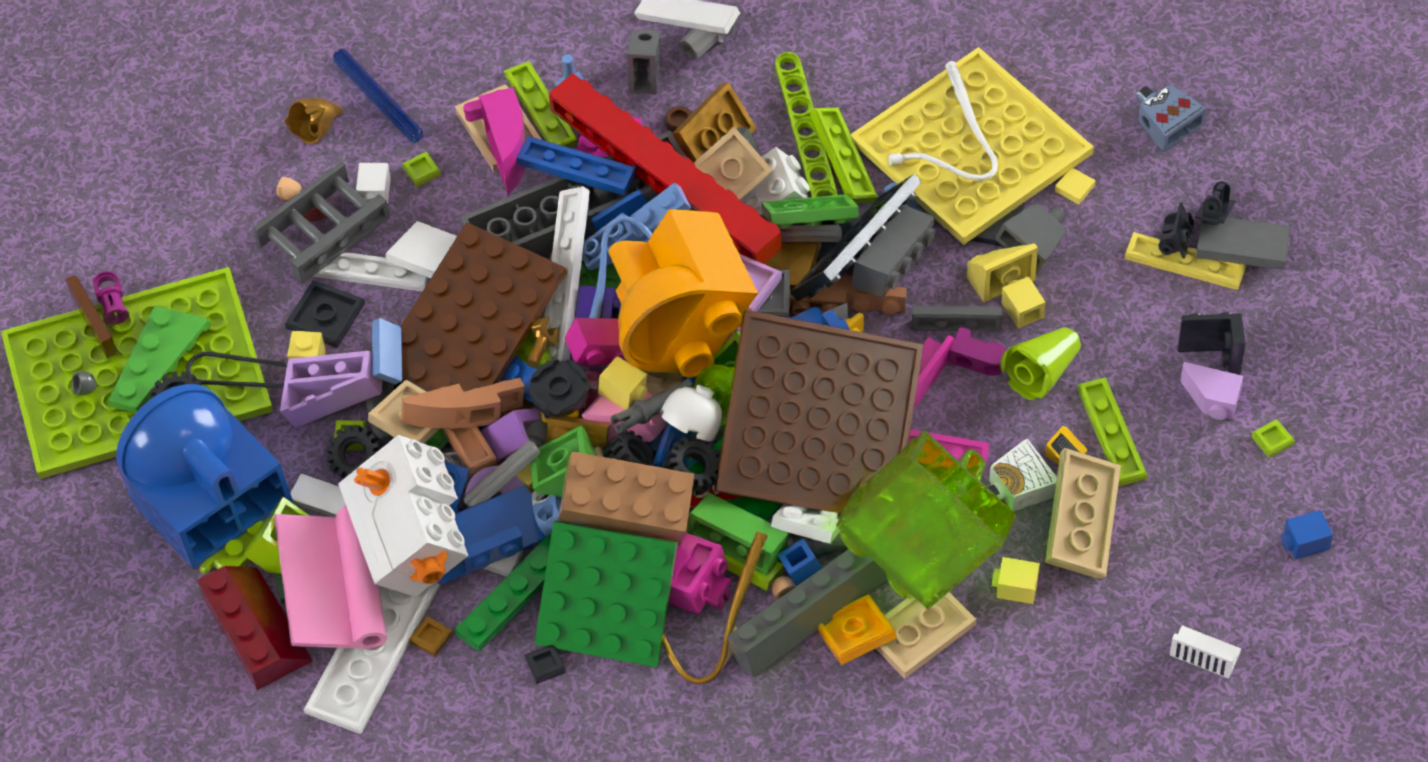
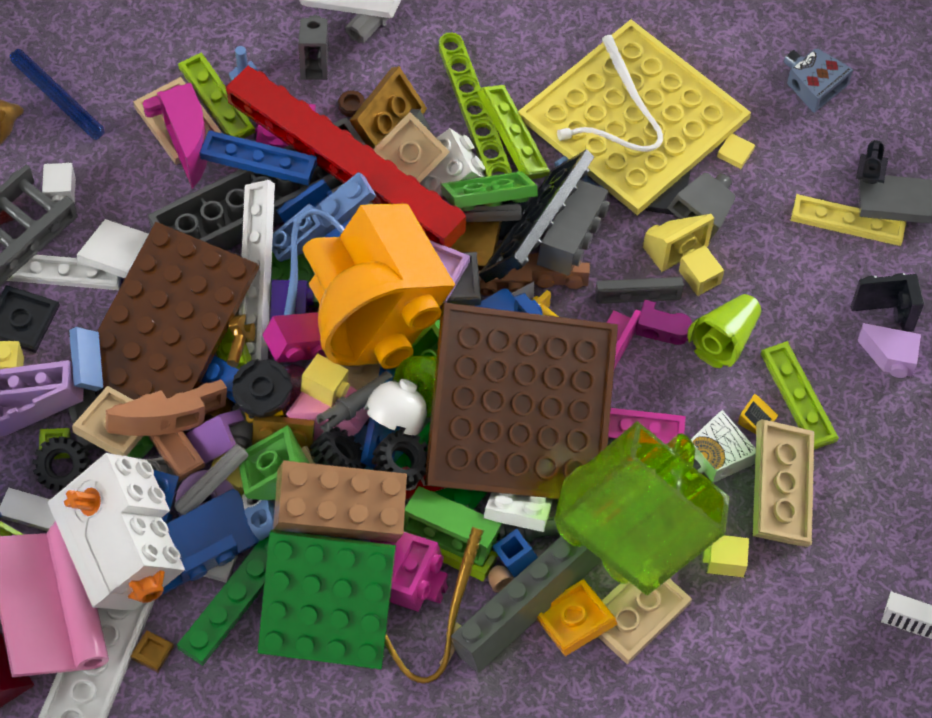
camera: 10 degrees left, 5 degrees up
(421, 169) = (105, 166): lime tile -> none
(545, 663) = (269, 673): black tile -> none
(1176, 232) = (837, 192): black hinge -> none

